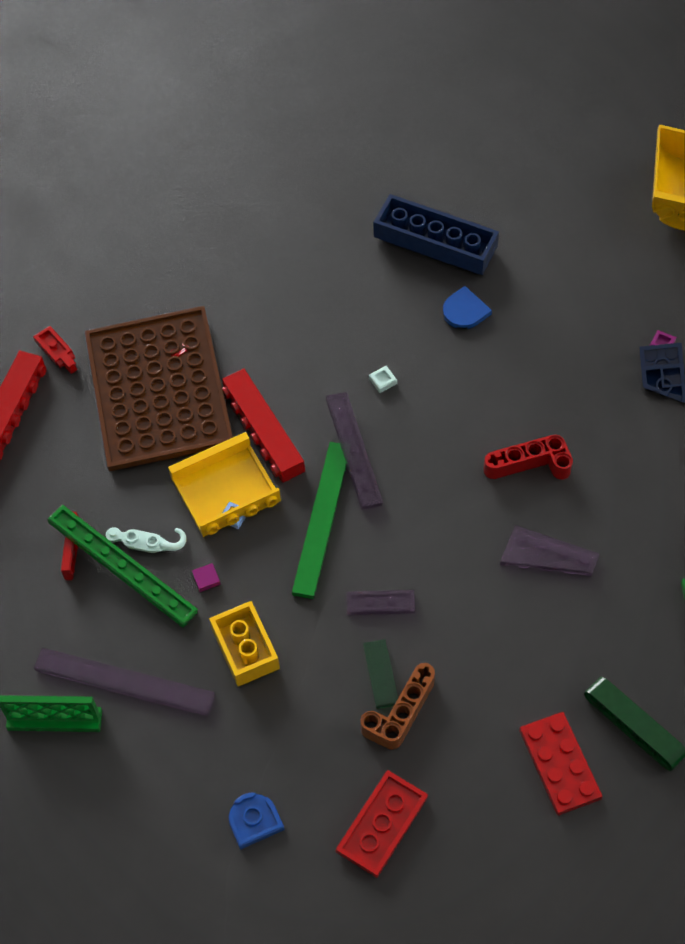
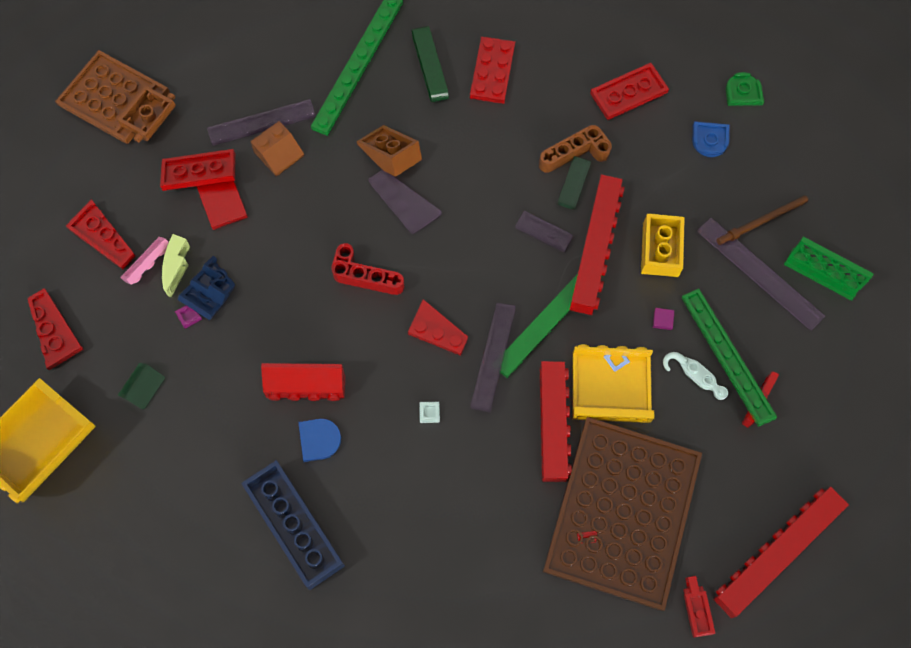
camera: 155 degrees left, 10 degrees up
(171, 702) = (735, 233): none -> reddish brown bar
(243, 912) = (744, 90): none -> green tile
(316, 610) = (596, 245): none -> red brick
(429, 449) = (437, 330): none -> red wing
(511, 338) = (303, 381): none -> red slope
(601, 592) = (391, 150): none -> dark orange slope
(650, 267) = (141, 385): none -> clear green panel

